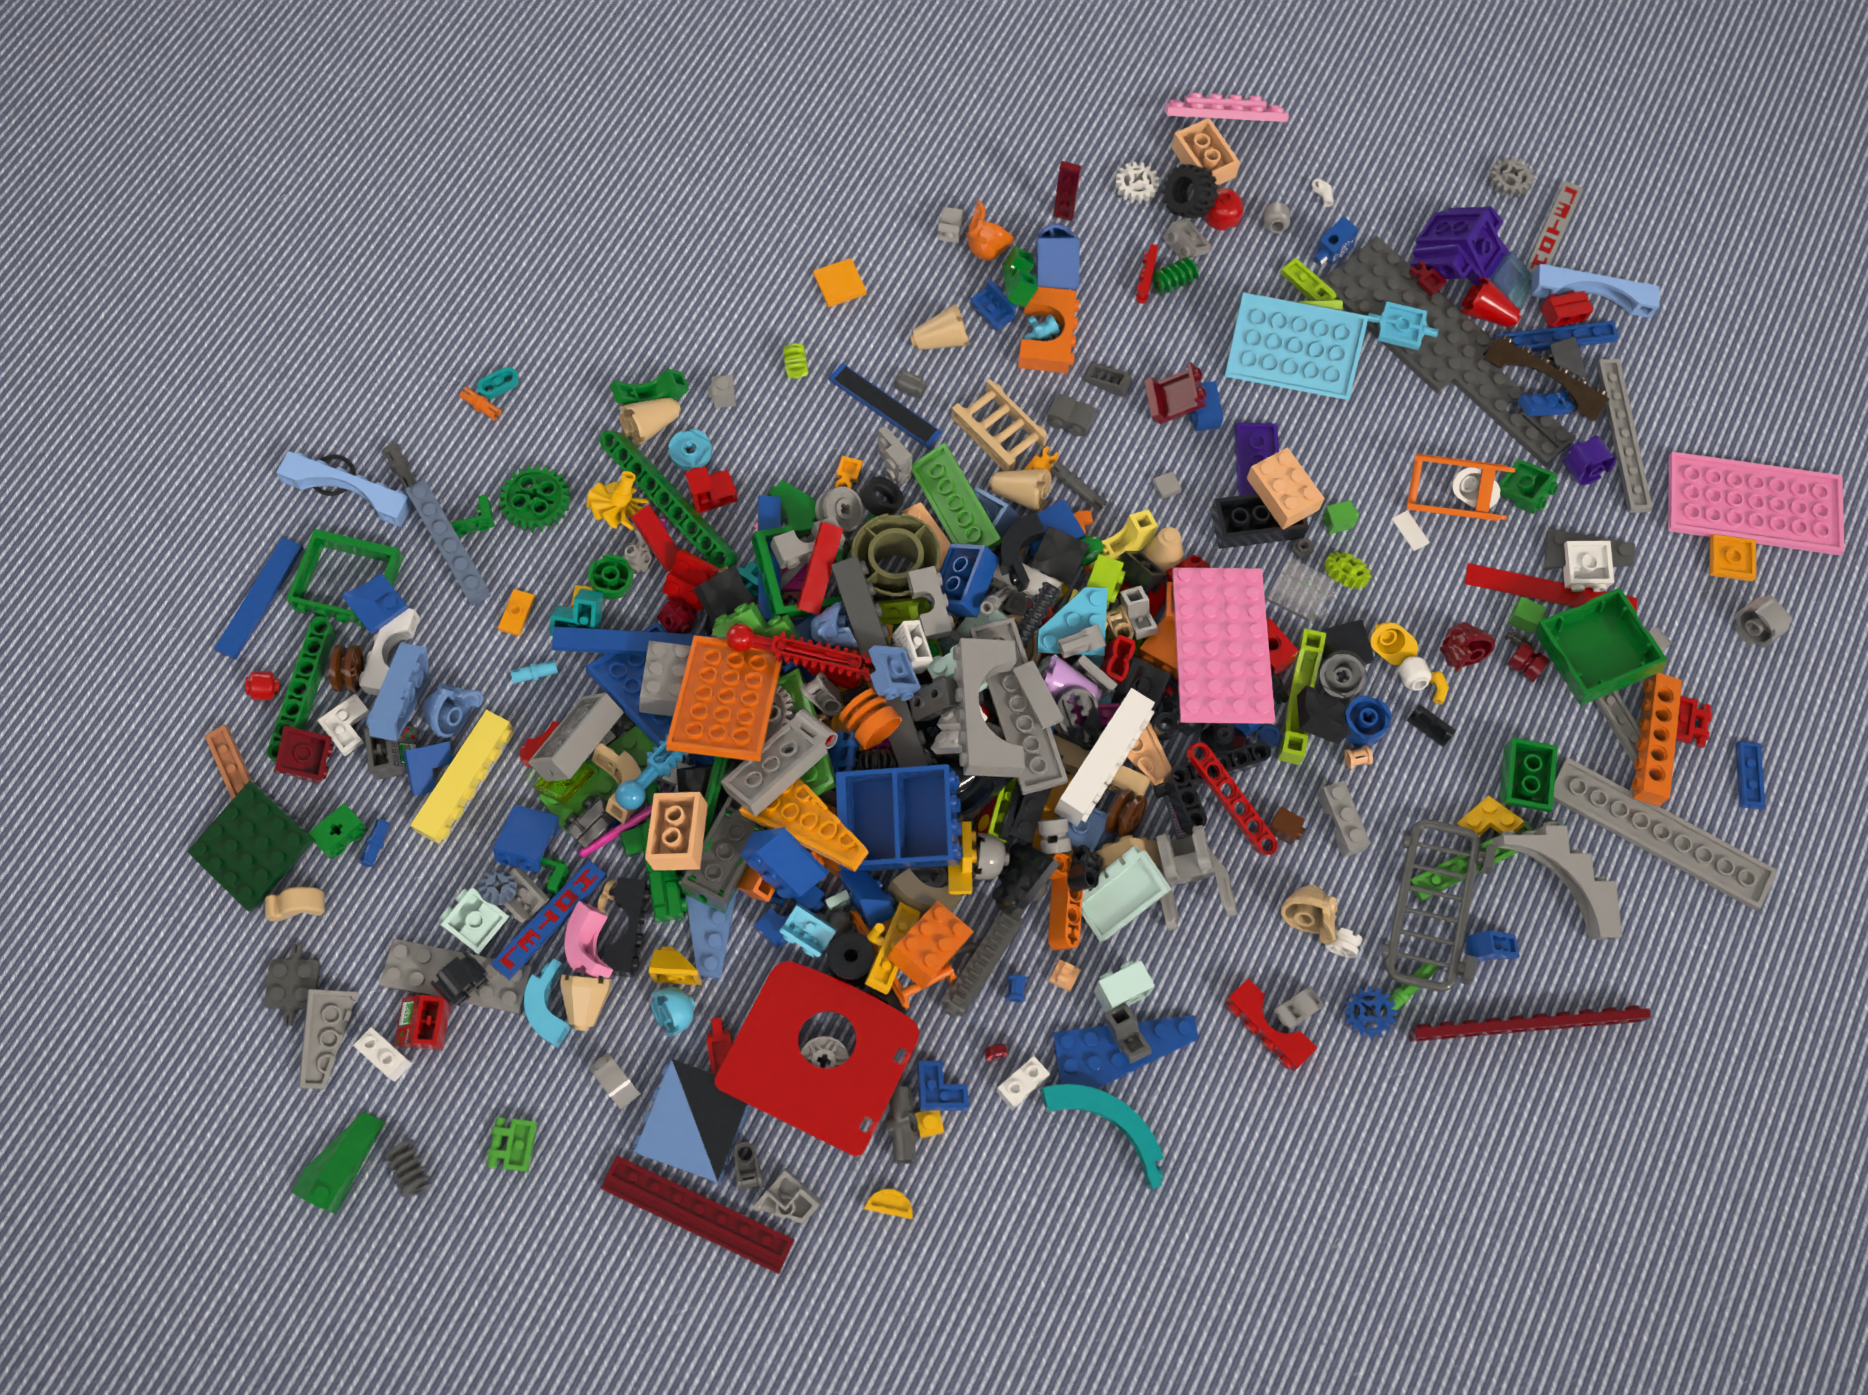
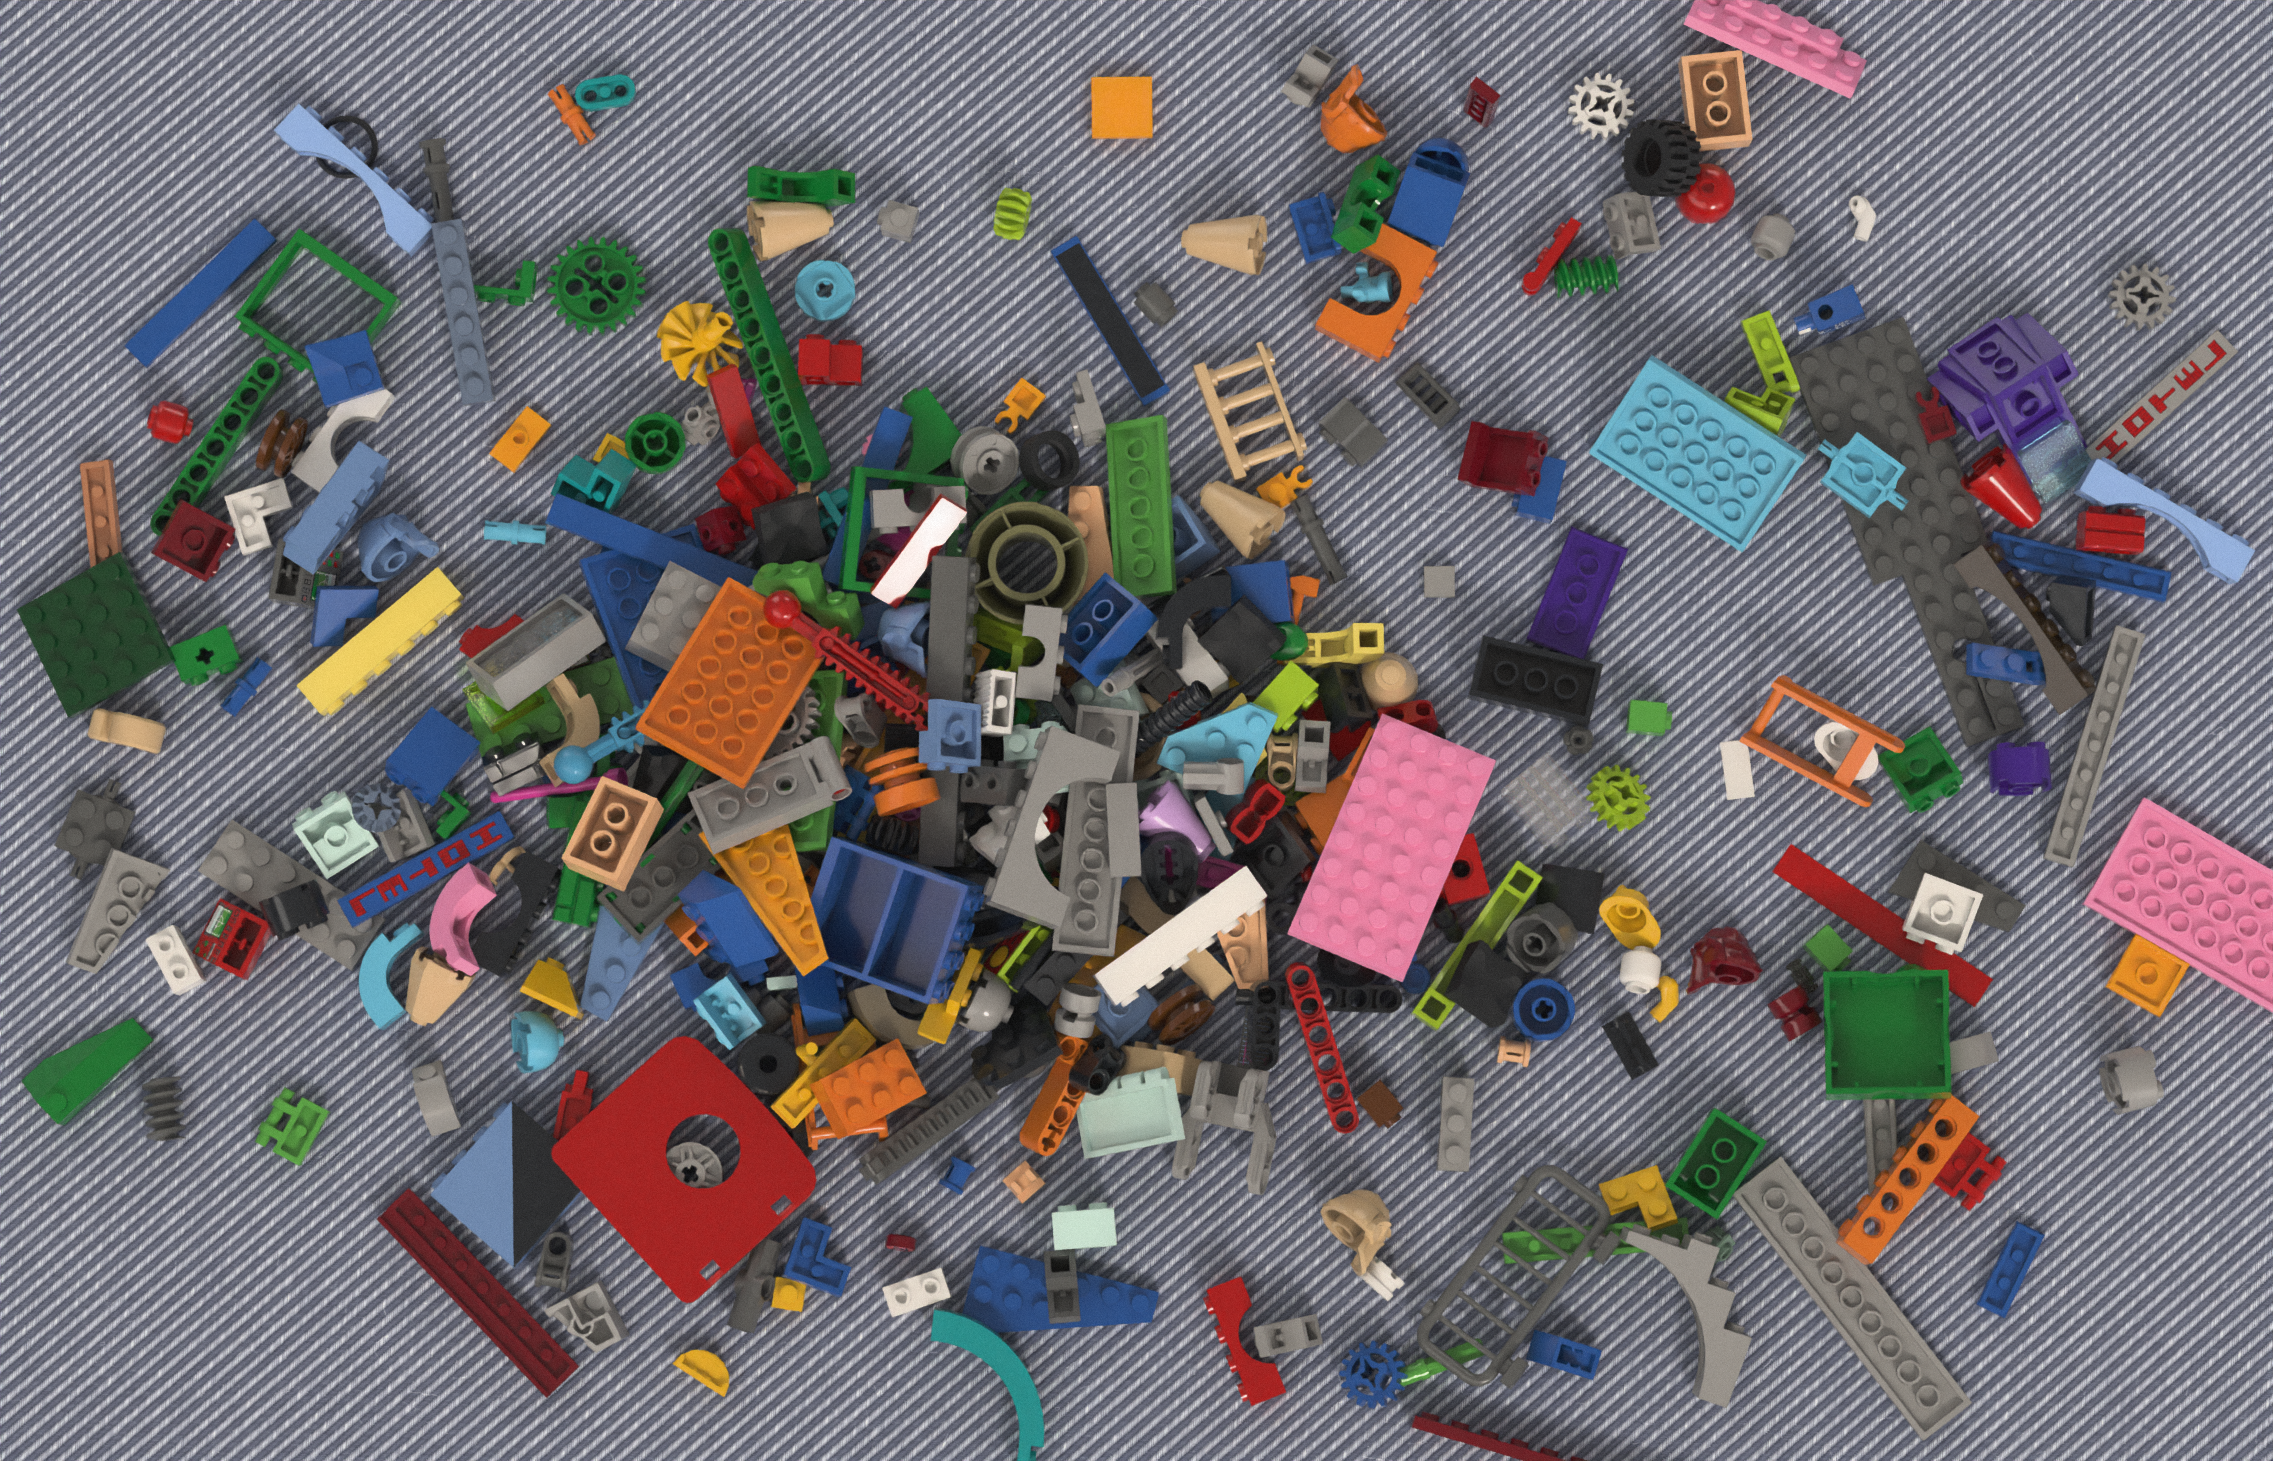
camera: 25 degrees right, 15 degrees up
(1285, 488) = (1577, 661): light nougat brick -> none

